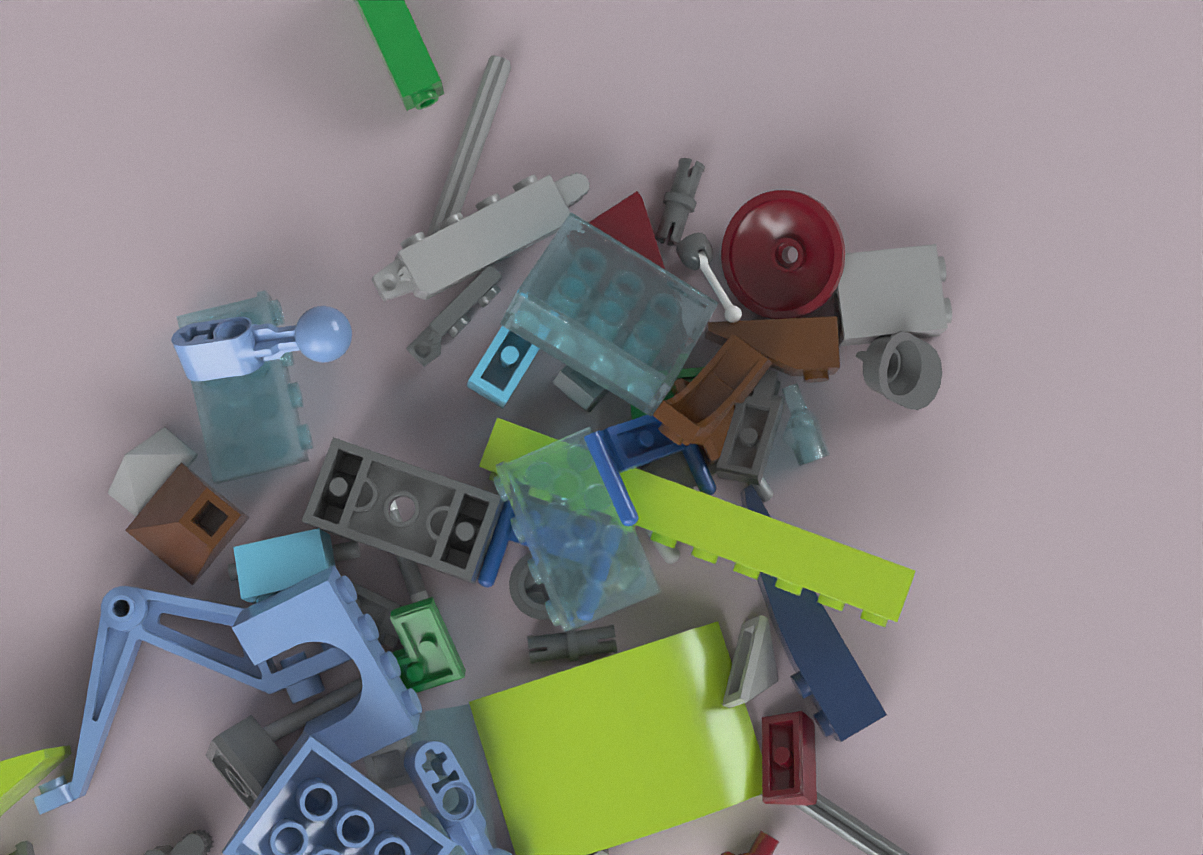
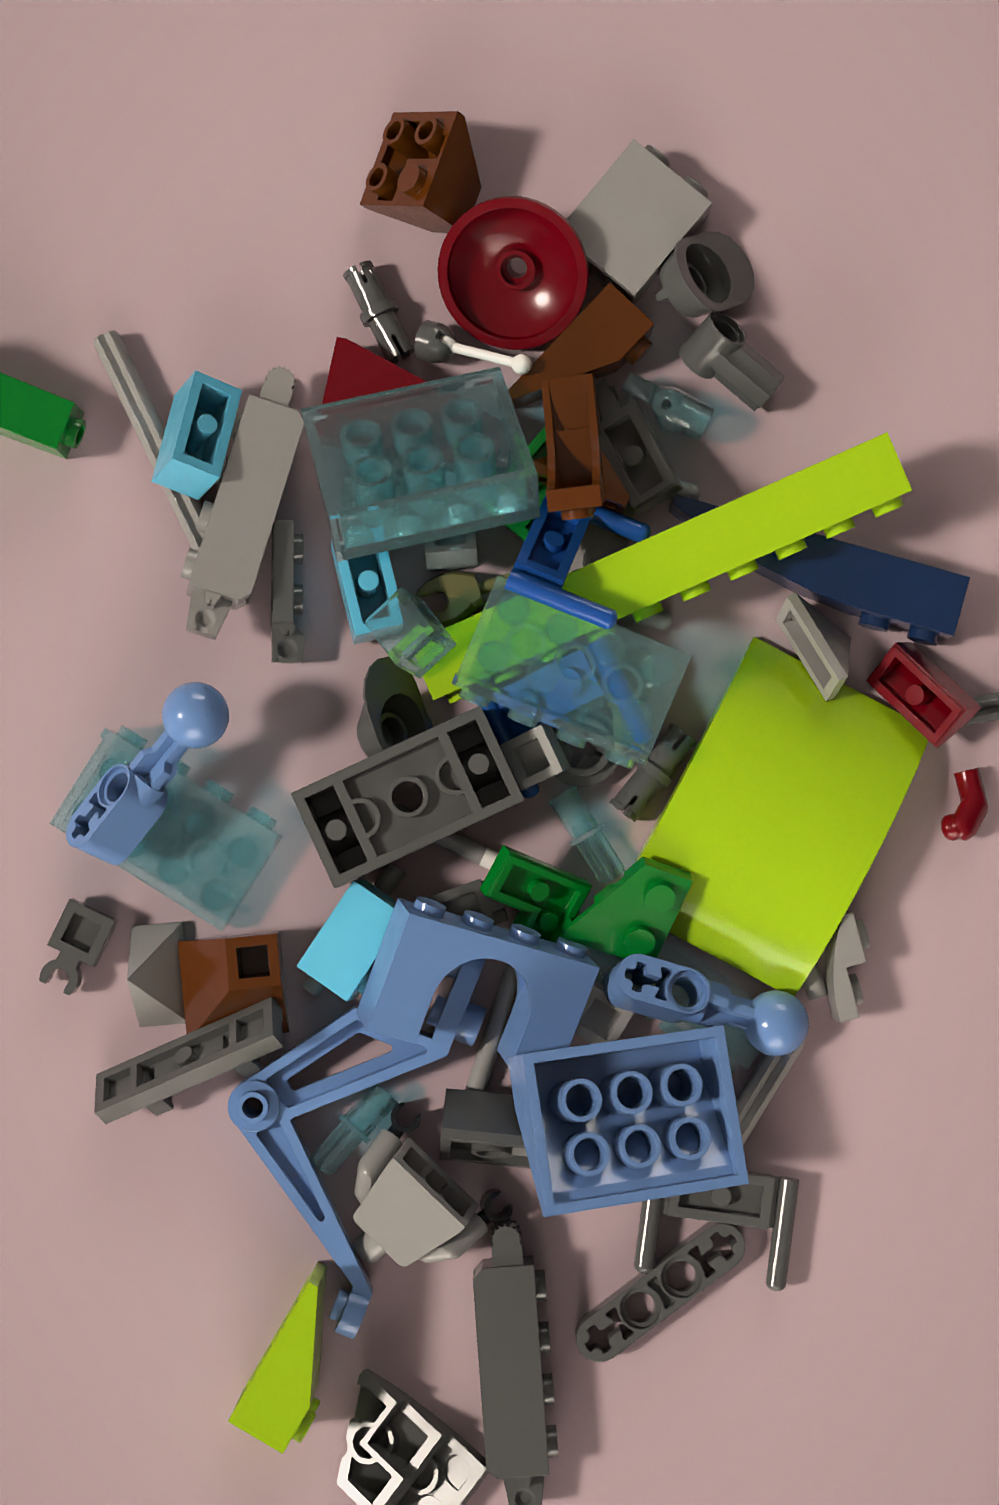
camera: 40 degrees left, 5 degrees up
(113, 541) = (190, 1060): none -> dark grey hinge
(124, 403) = (80, 938): none -> dark grey plate
(158, 767) = (413, 1204): none -> light grey torso
(171, 683) = (353, 1129): none -> clear light blue axle
(449, 445) = (390, 708): none -> dark grey piece
(472, 718) = (633, 912): none -> green wing
(493, 643) = (587, 835): none -> clear light blue axle
(494, 169) = (197, 435): none -> medium azure brick
(503, 410) = (410, 633): none -> clear light blue panel
(506, 562) = (535, 756): none -> light grey plate
(562, 421) = (462, 591): none -> olive hand
(789, 143) = (424, 171): none -> reddish brown slope
(866, 425) = (721, 352): none -> dark grey piece

